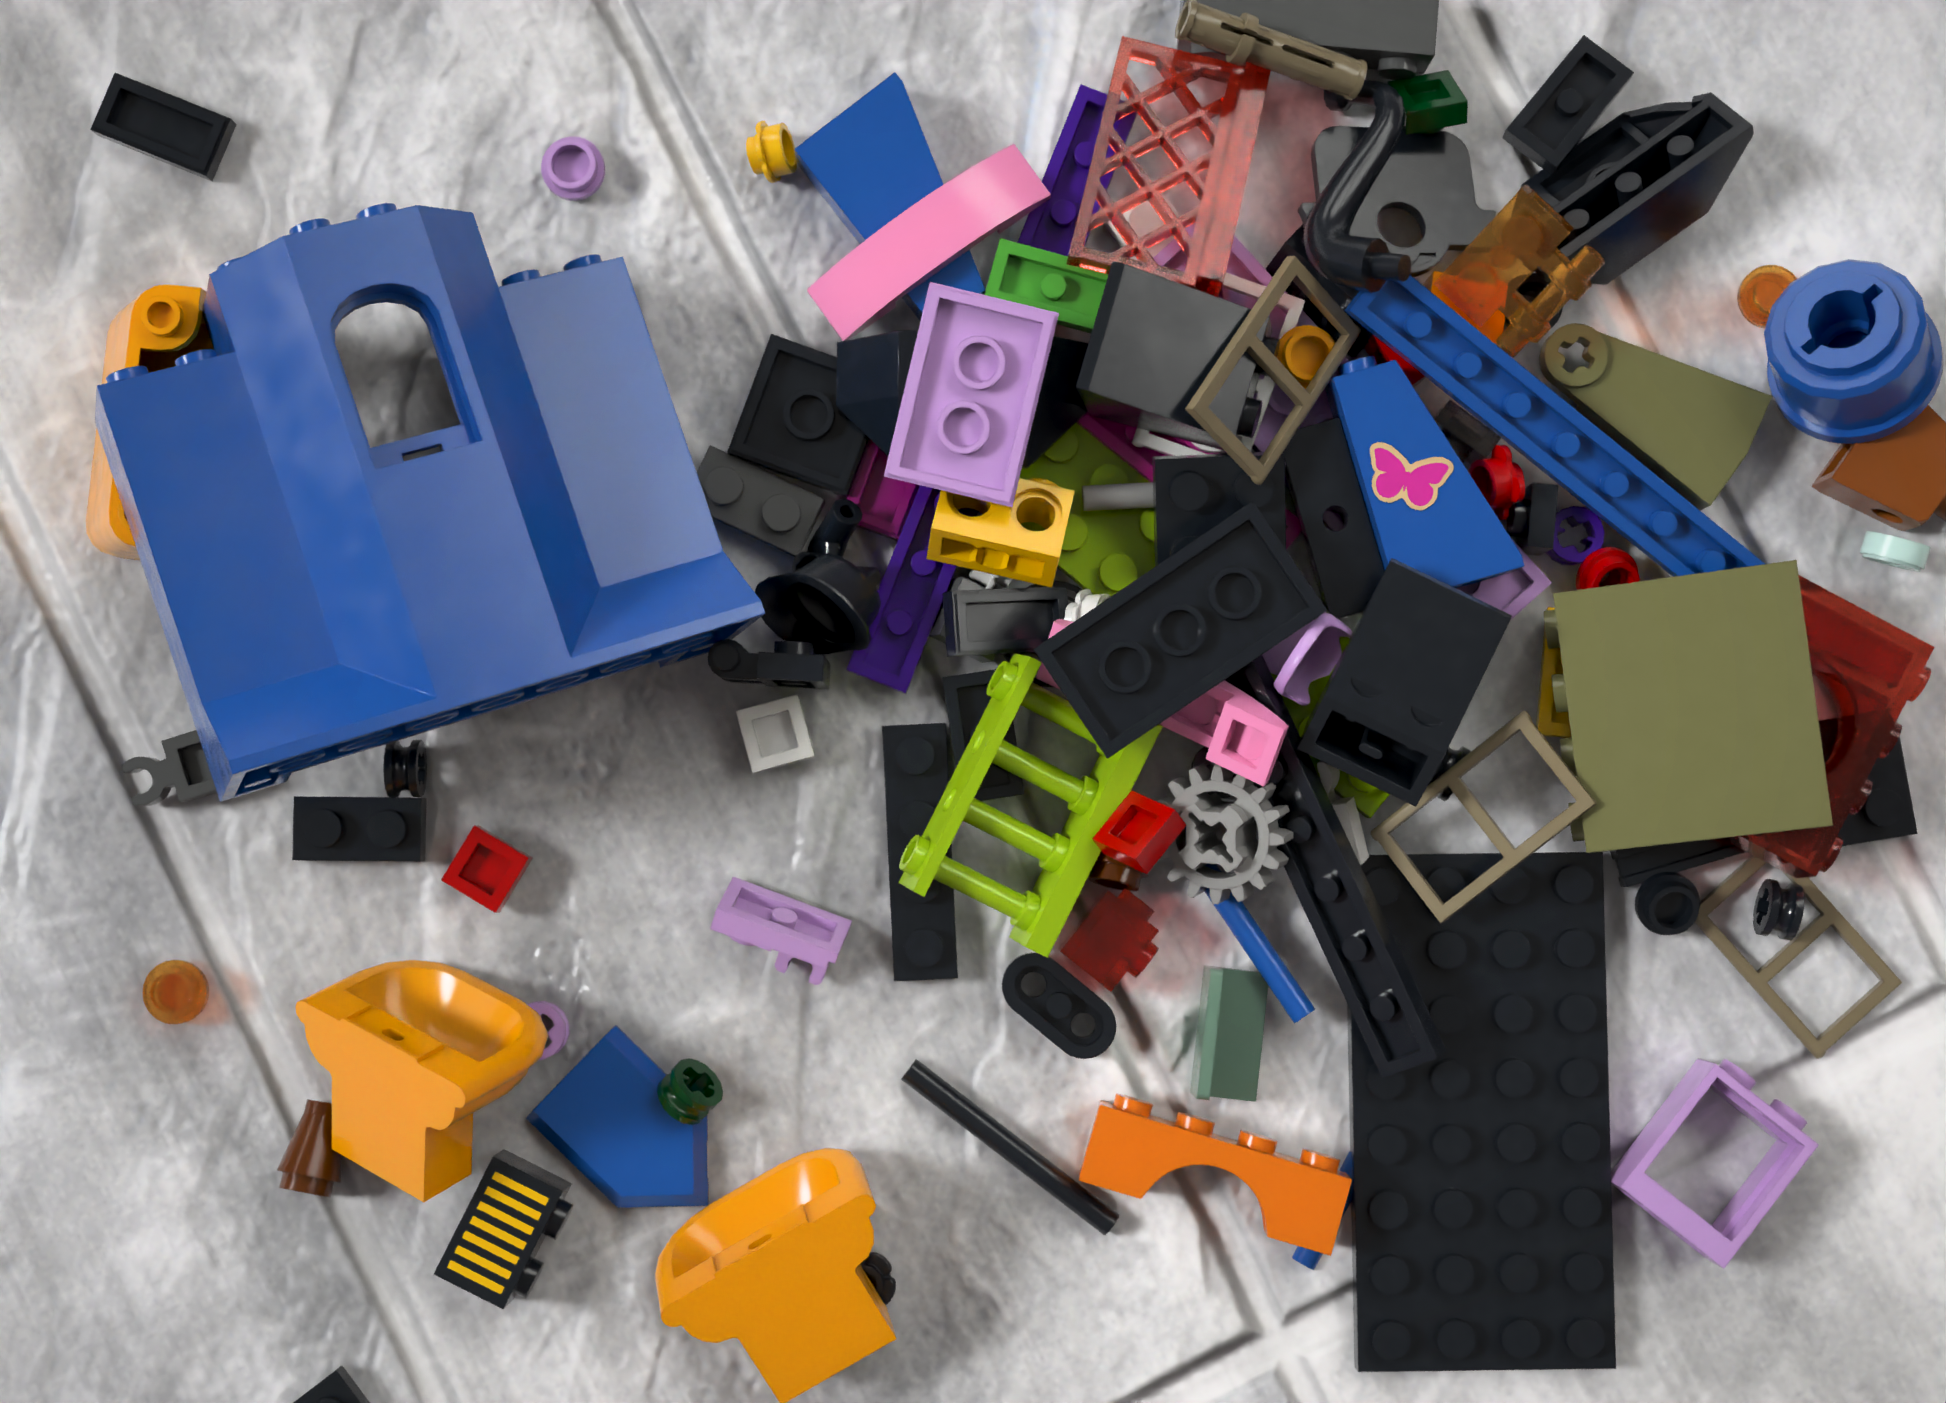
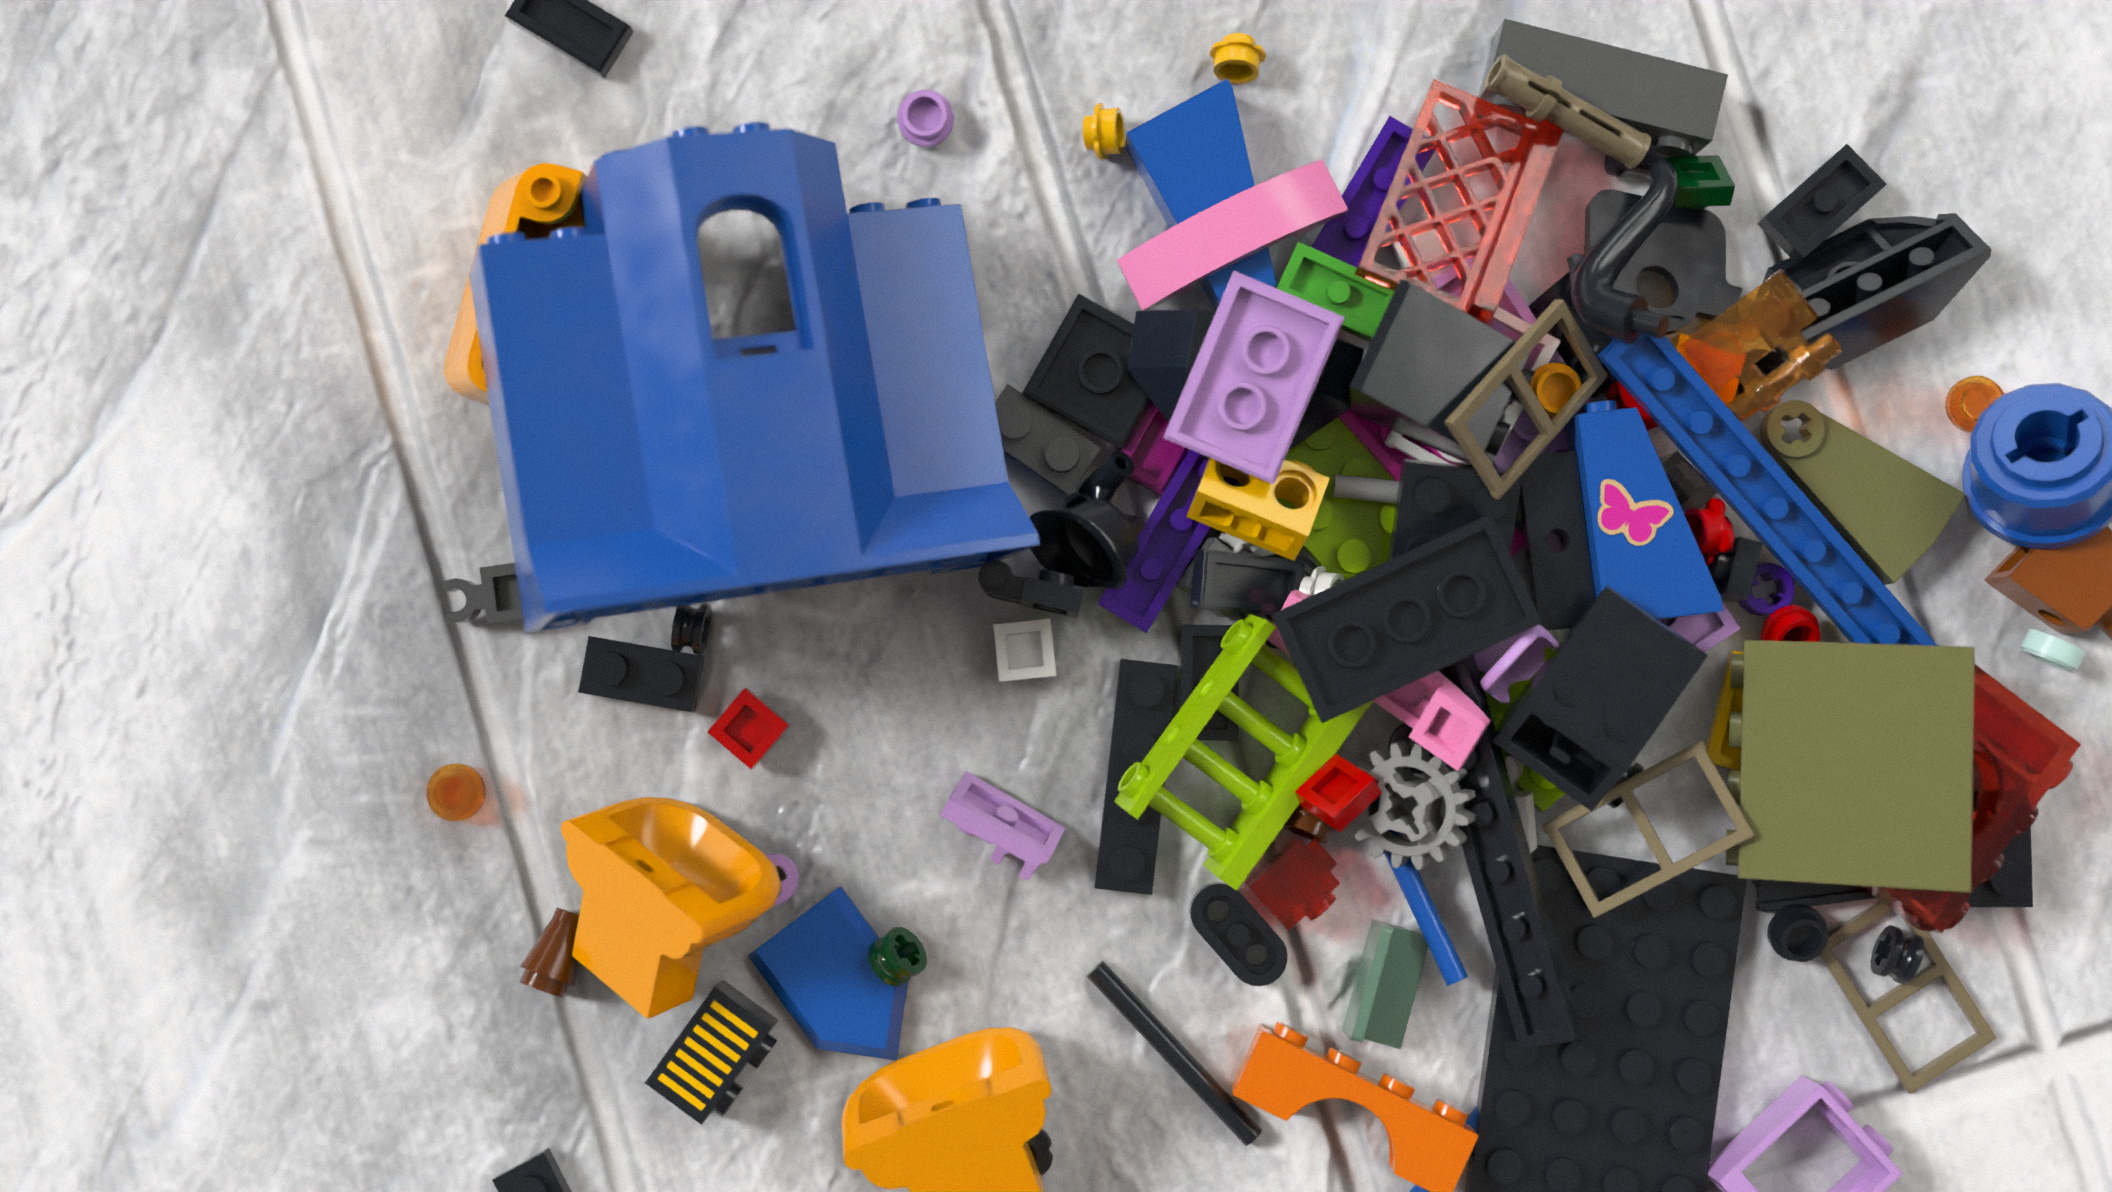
camera: 15 degrees right, 0 degrees up
(904, 48) = (1237, 58): none -> yellow plate

